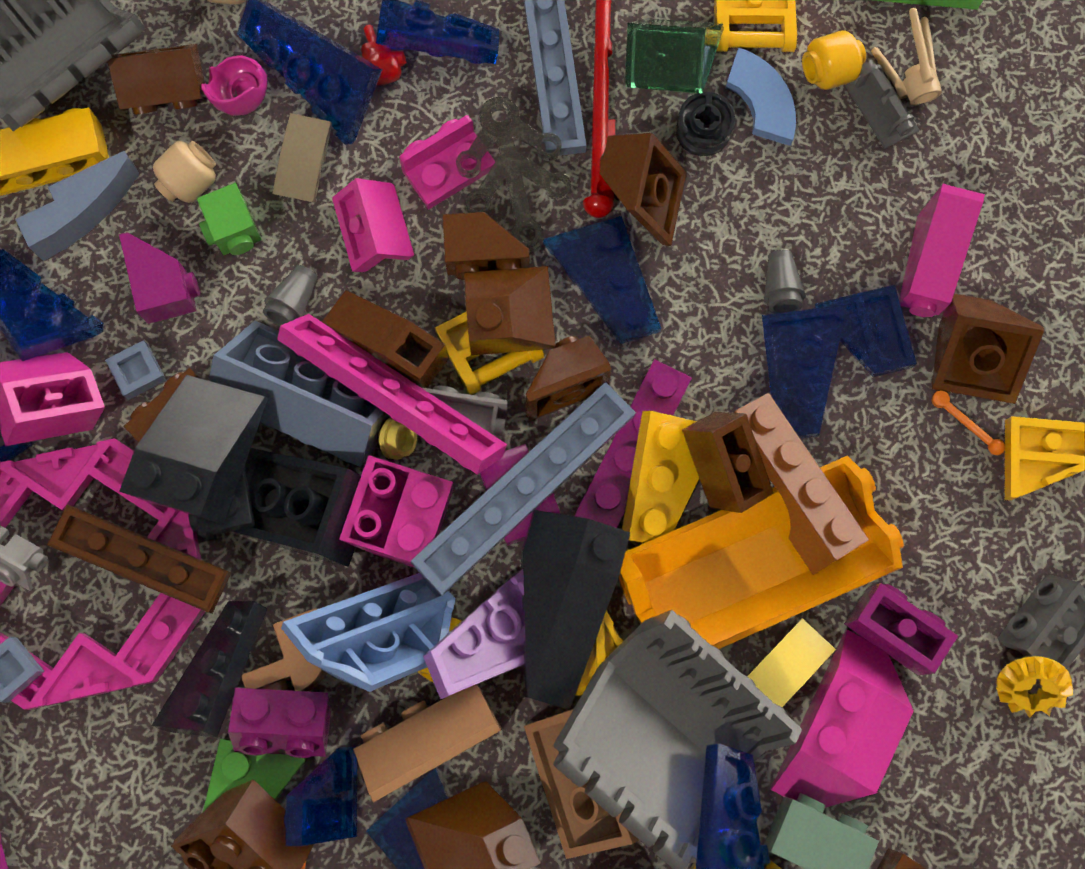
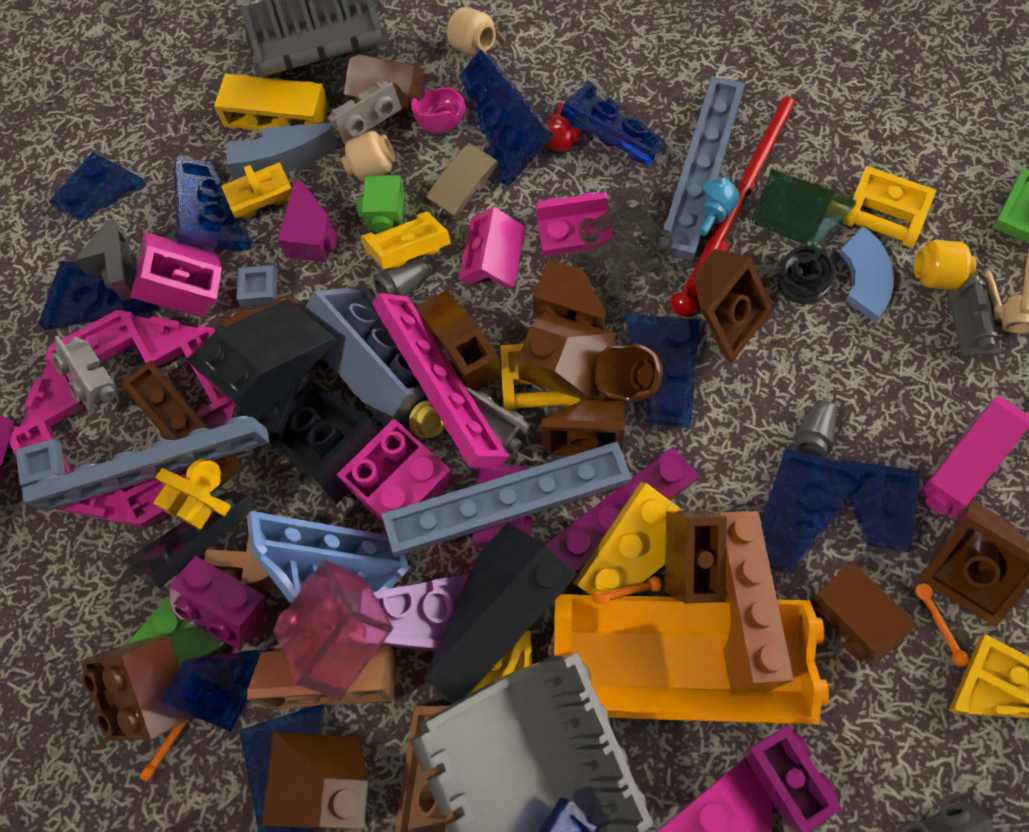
camera: 35 degrees right, 10 degrees down
(79, 261) = (257, 190): none -> yellow hips
(117, 629) = (137, 467): none -> sand blue plate
(169, 107) = (373, 107): none -> light grey hinge
(199, 608) = (191, 496): none -> yellow hips
(278, 254) = (406, 241): none -> yellow plate
(428, 699) = (331, 630): none -> clear pink brick
(582, 304) = (628, 373): none -> reddish brown hair
(588, 79) = (720, 202): none -> dark azure piece
(659, 541) = (653, 584): none -> orange hinge
(791, 663) = (673, 764): light yellow slope -> none
(897, 447) = (861, 614): none -> reddish brown brick

